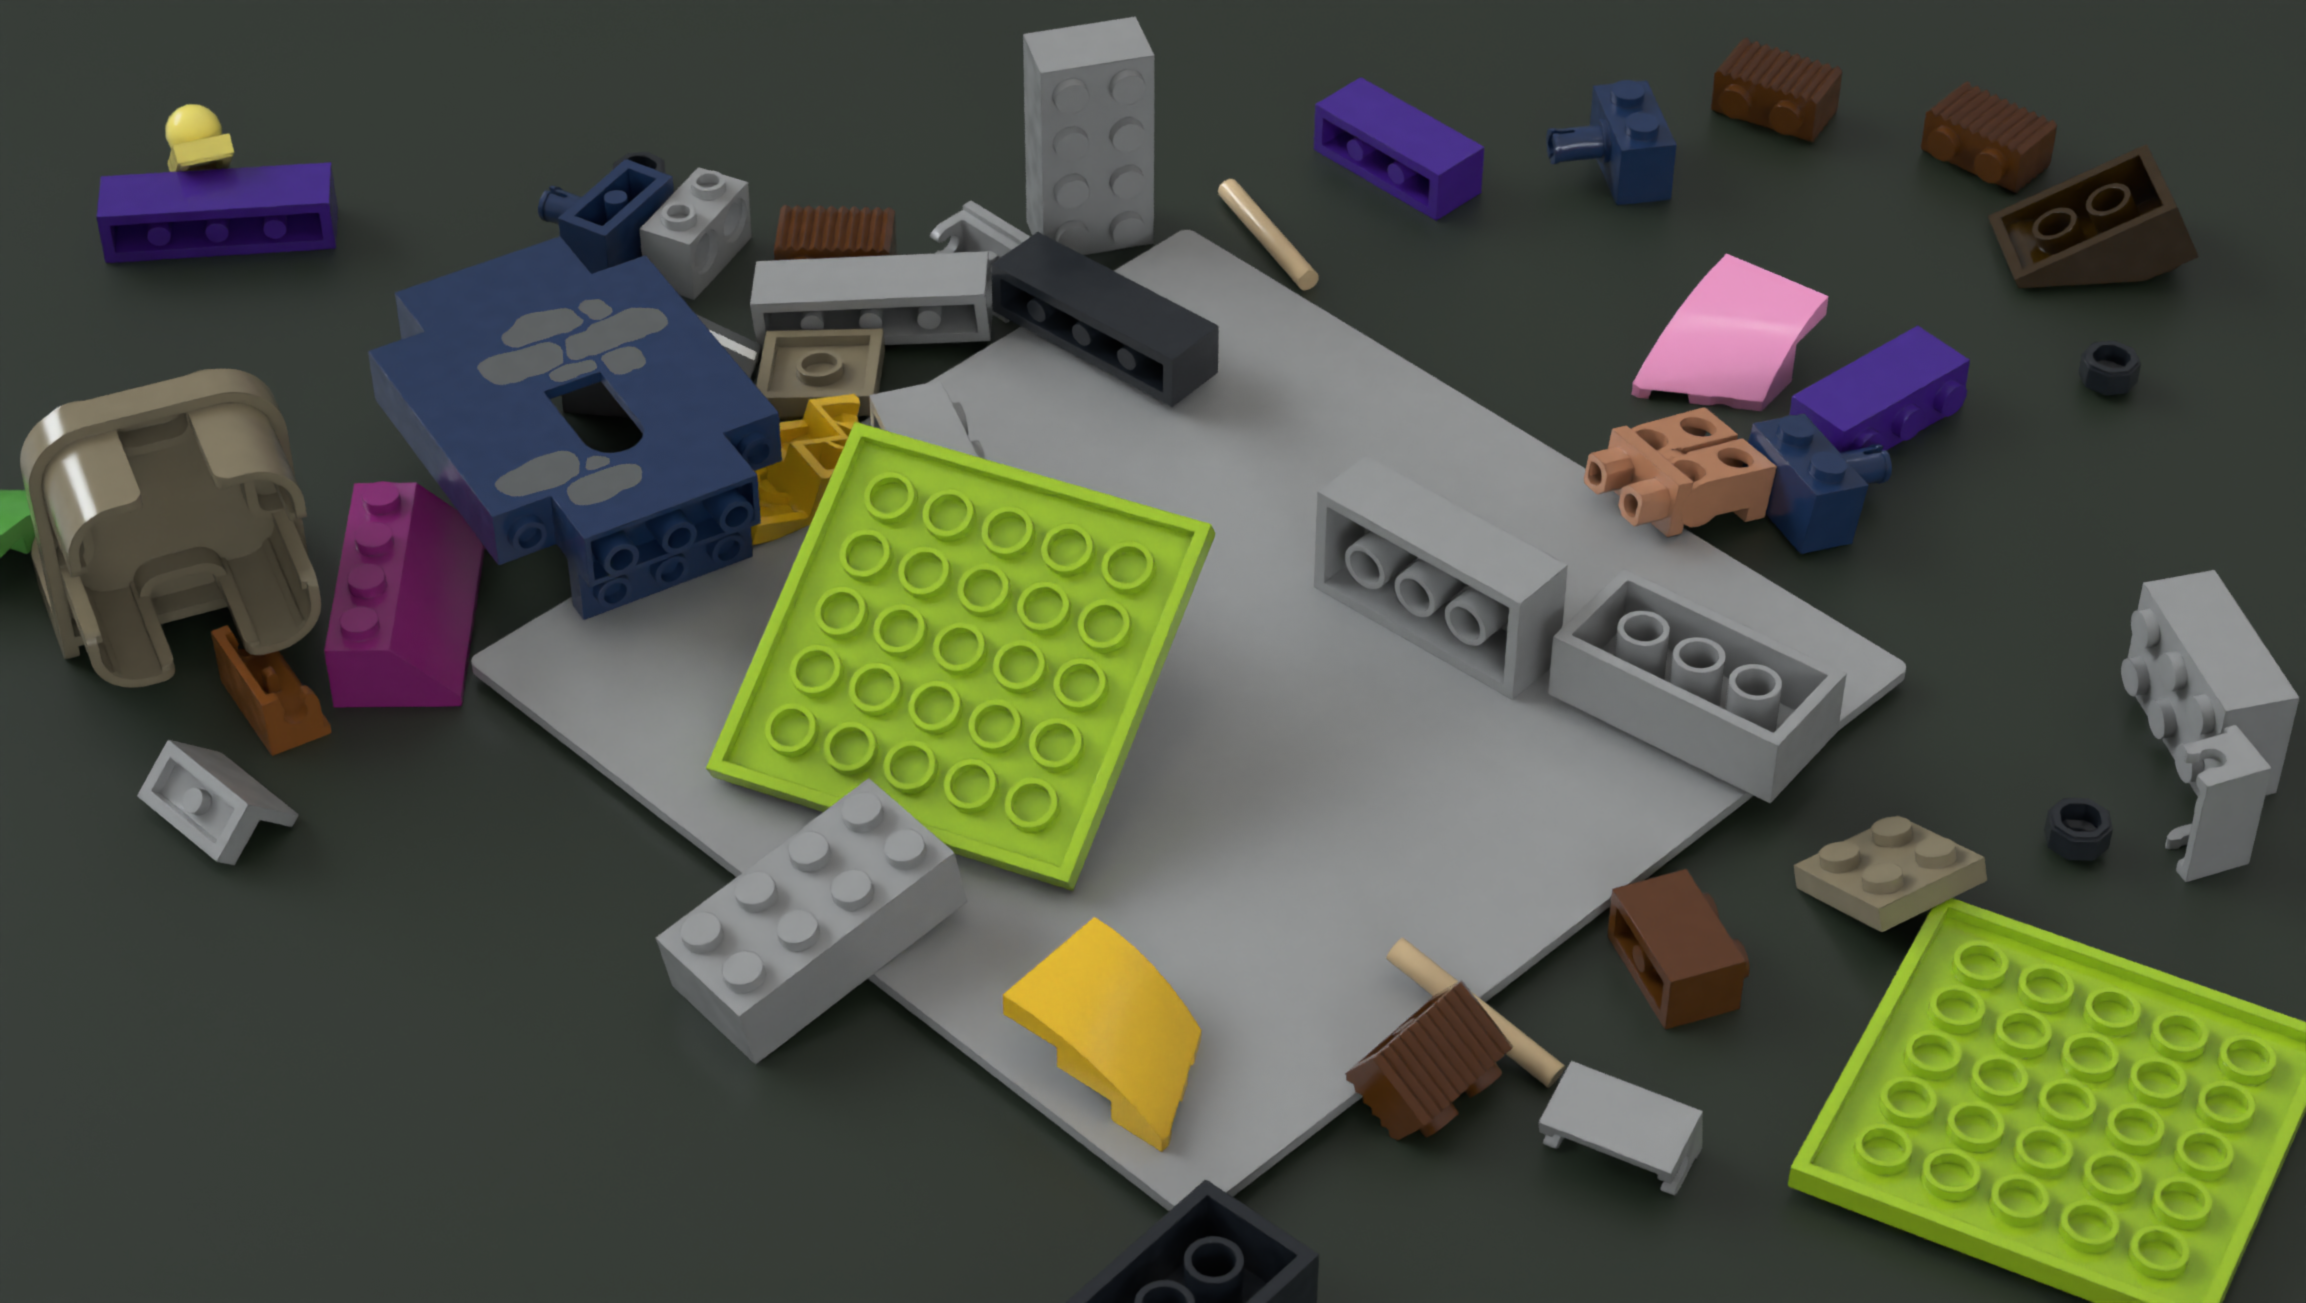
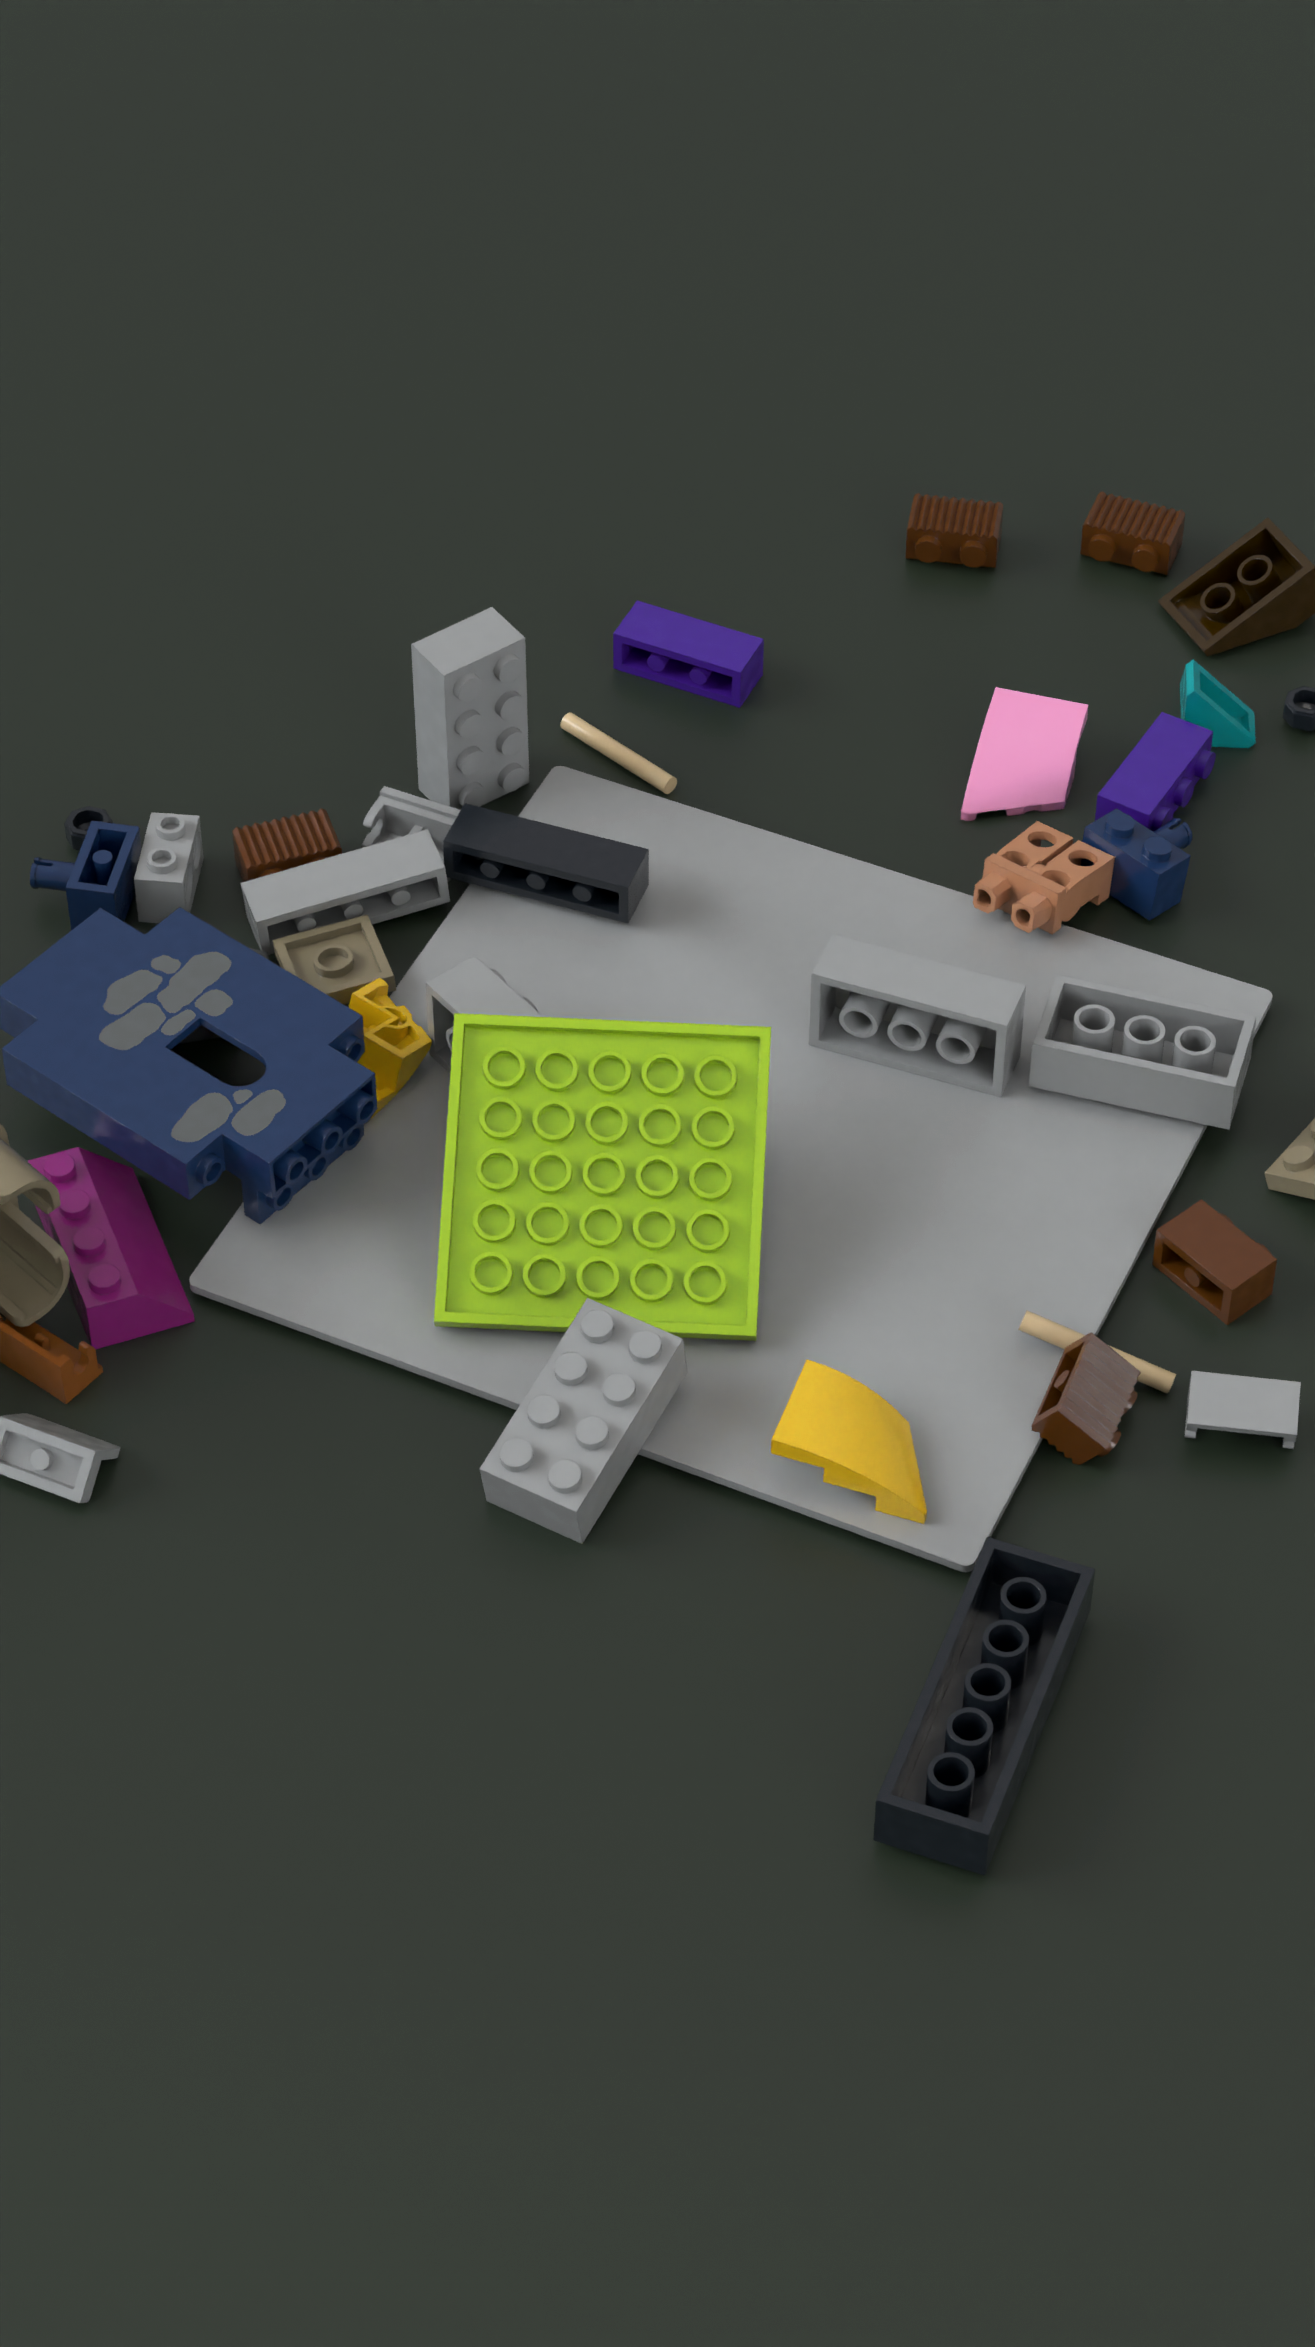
camera: 20 degrees left, 5 degrees up
(1626, 139) = (864, 605): dark blue brick -> none
(1994, 343) = (1216, 708): none -> teal slope

